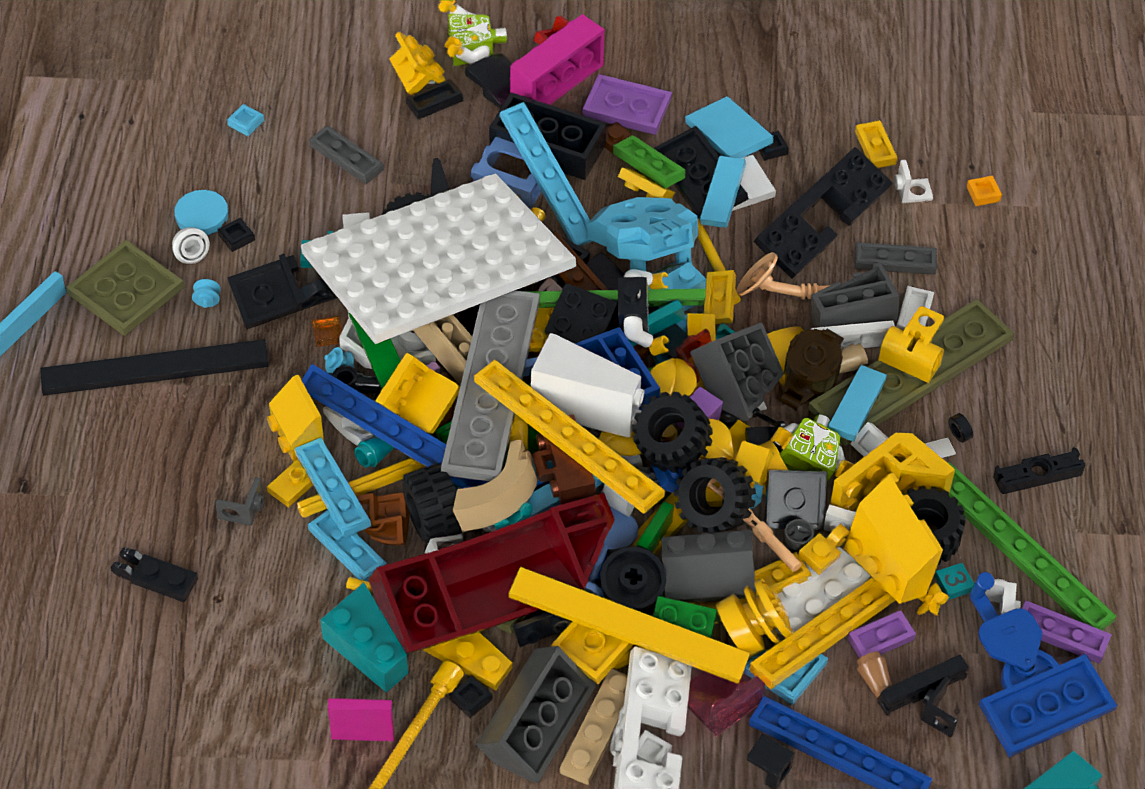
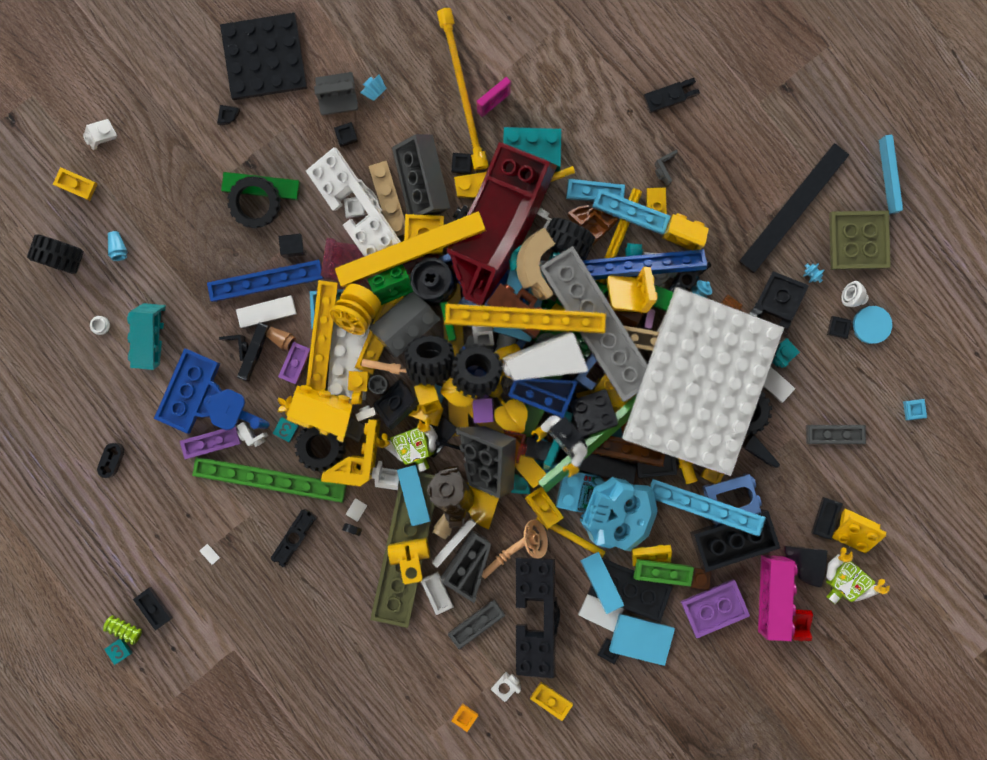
camera: 145 degrees right, 35 degrees up
(869, 720) = (266, 311): none -> white tile

